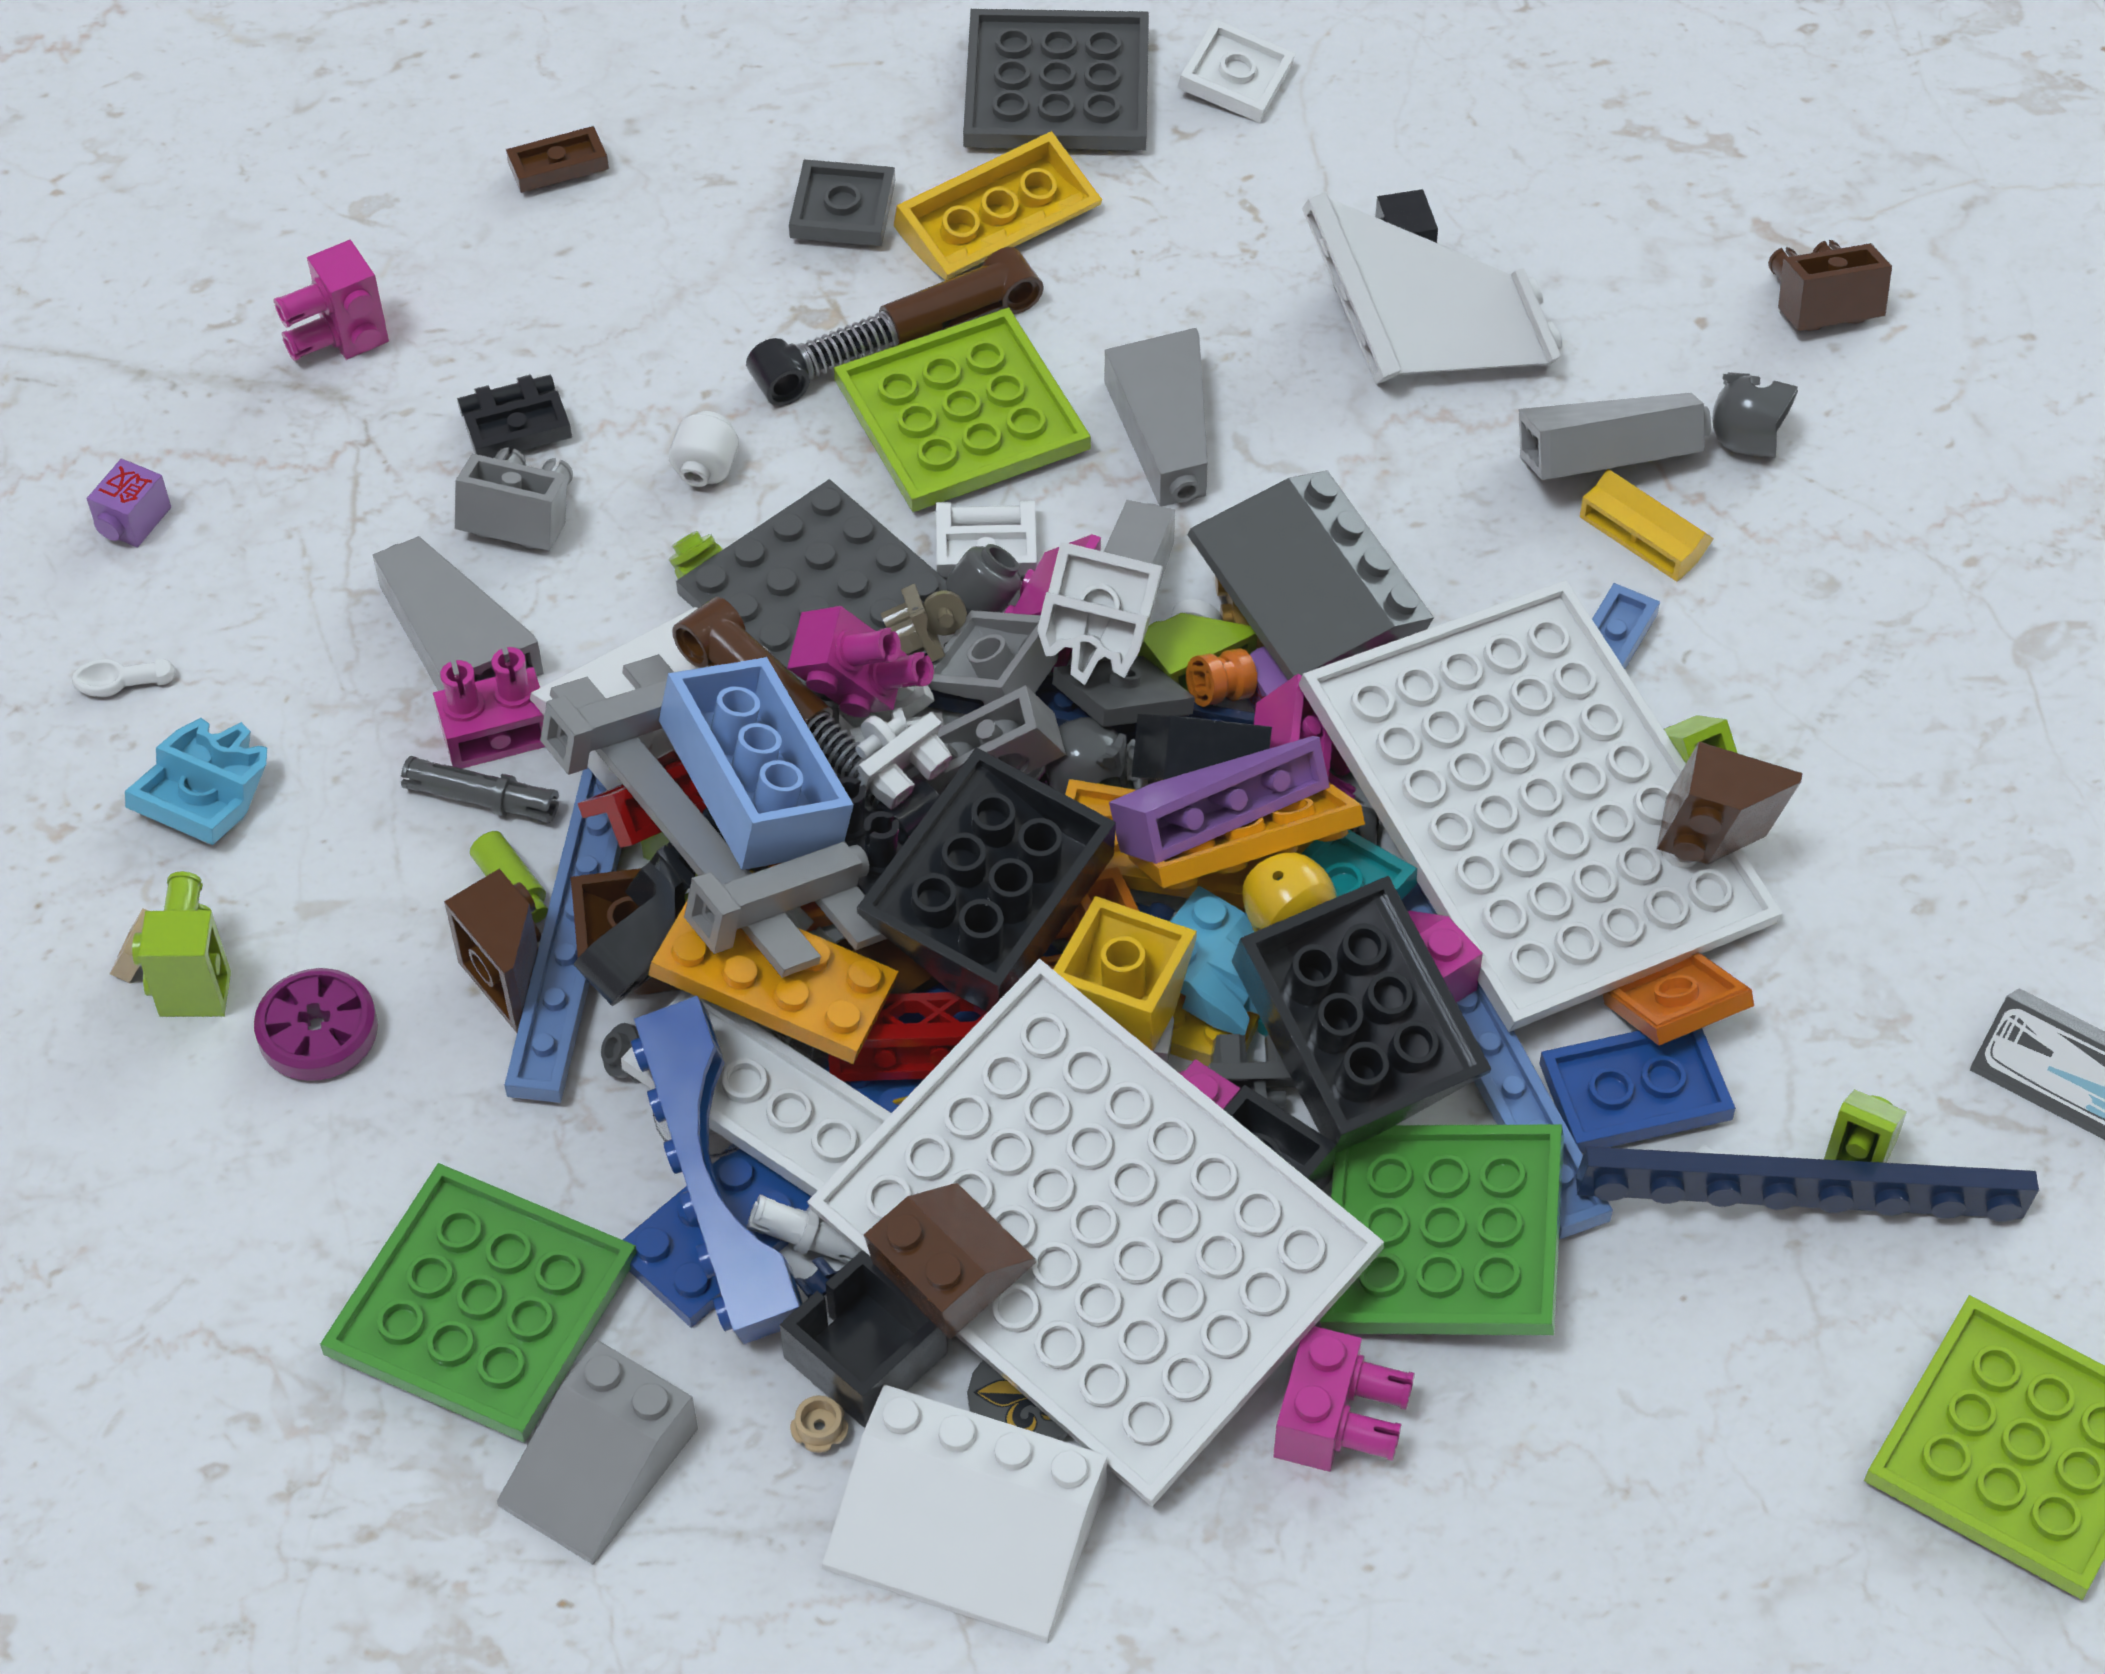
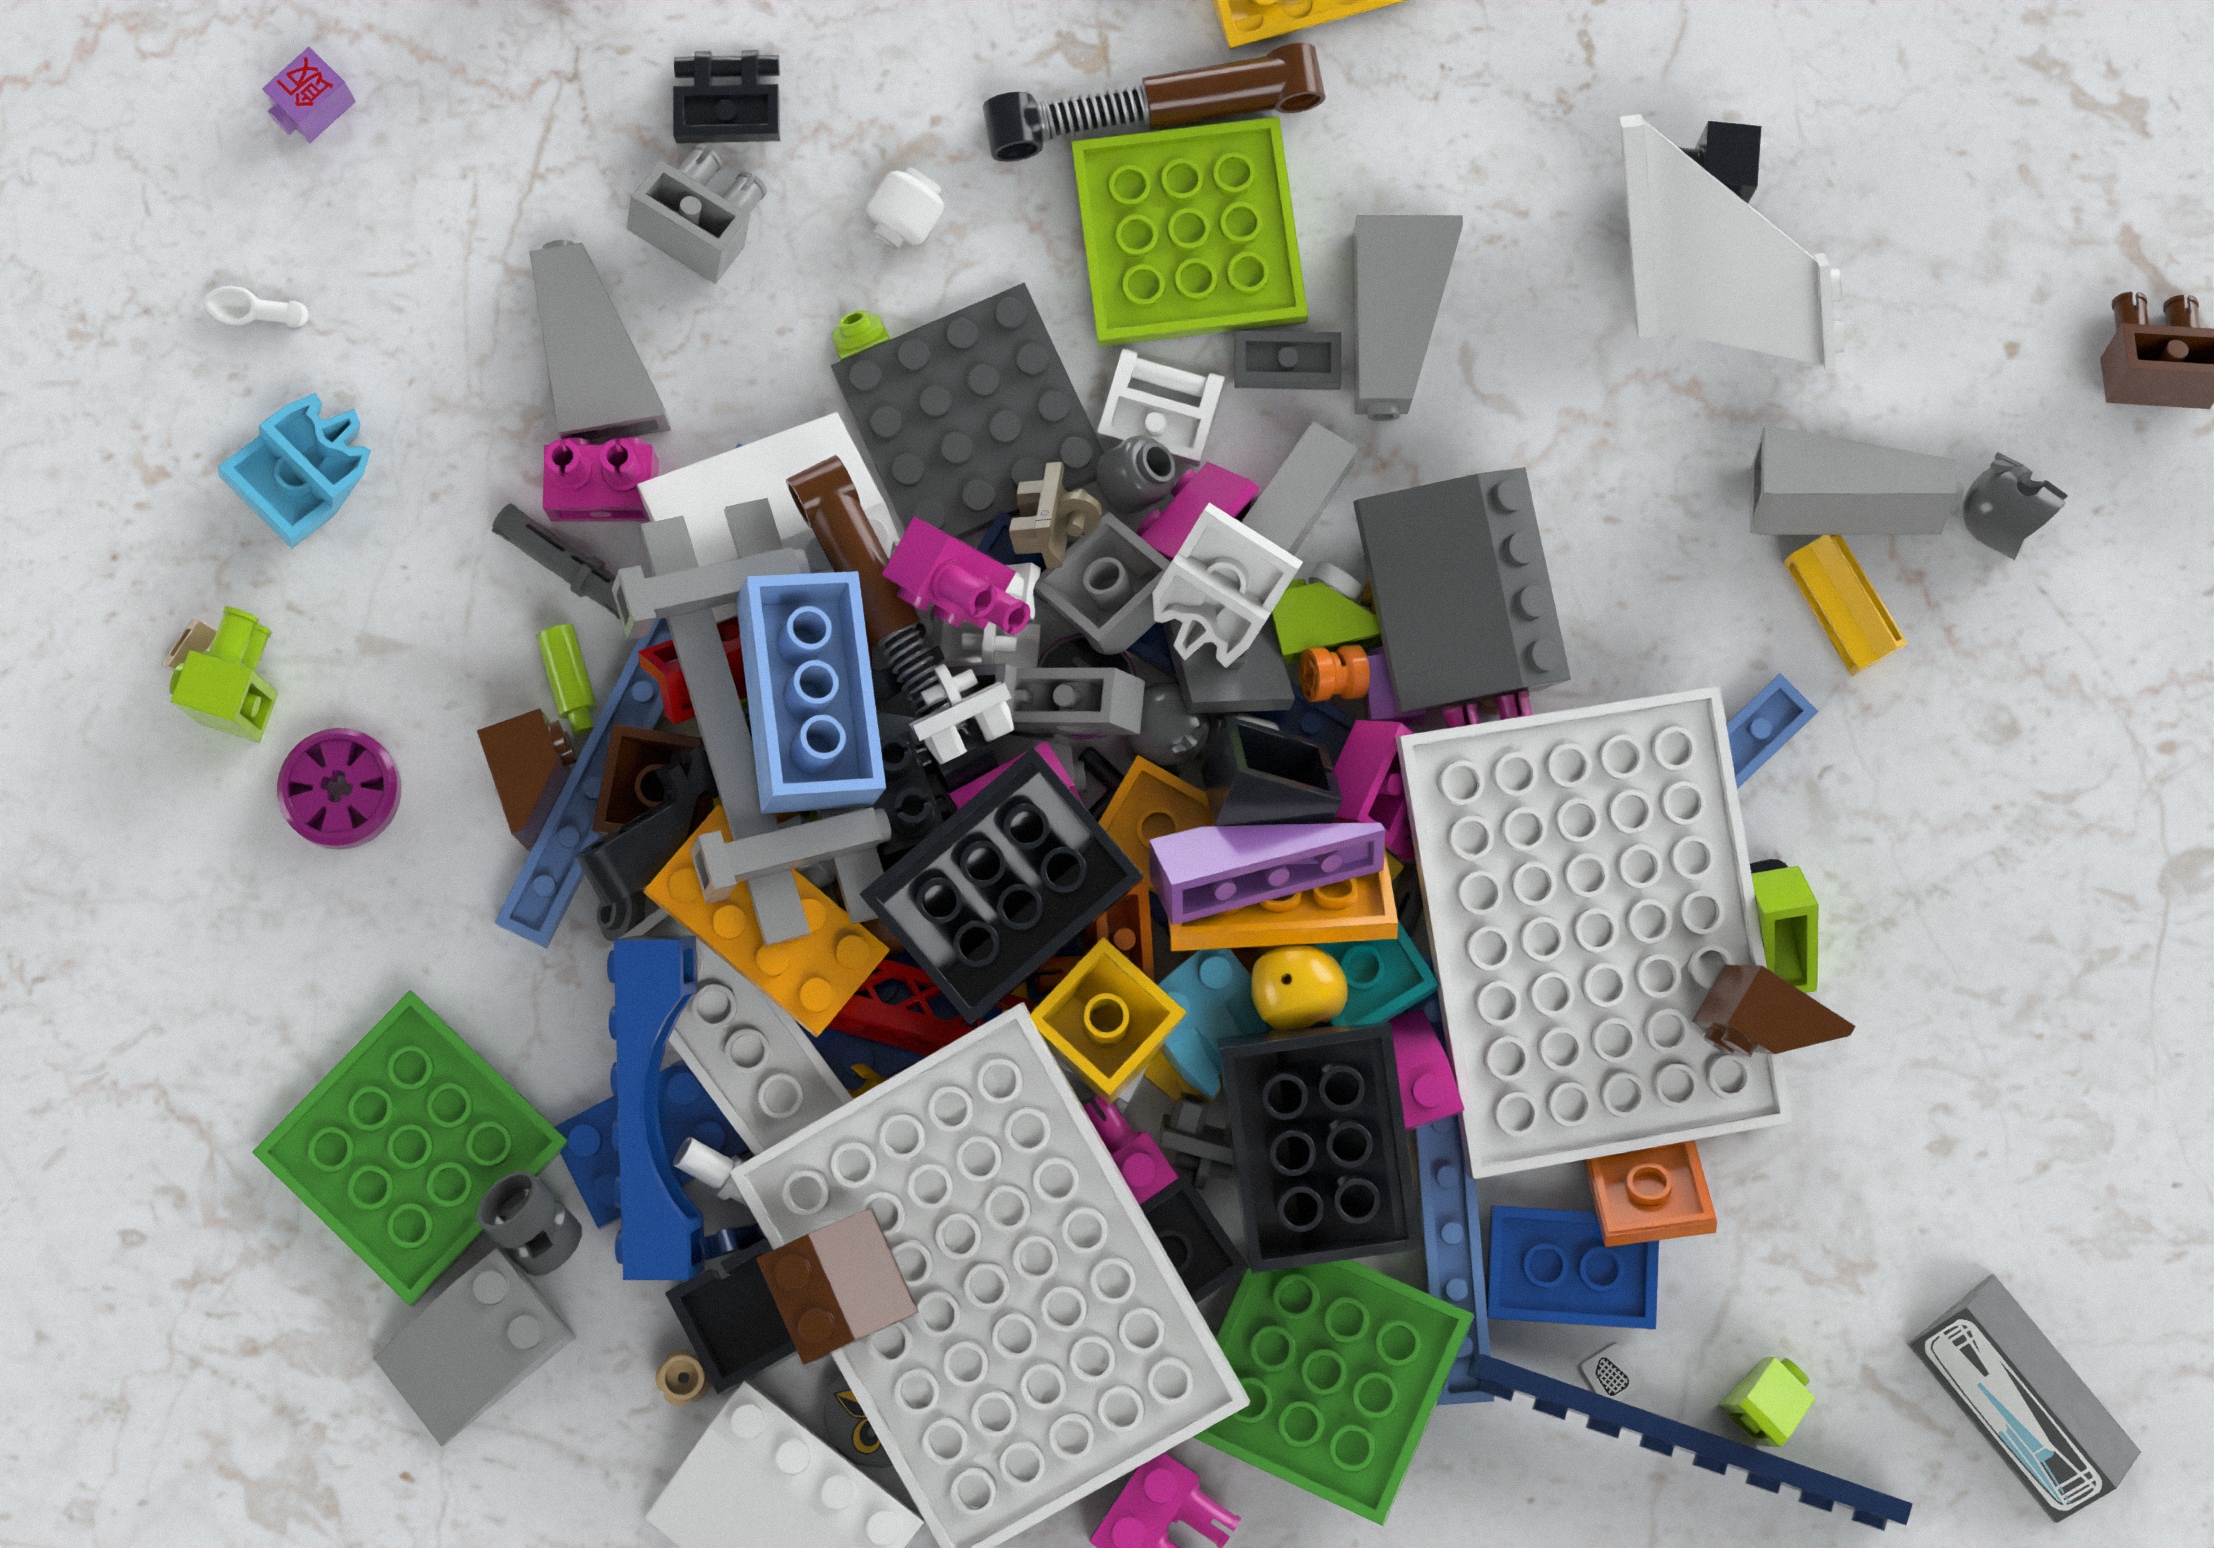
camera: 15 degrees right, 25 degrees up
(617, 1311) = (529, 1223): none -> dark grey wheel
(1085, 476) = (1287, 360): none -> dark grey plate

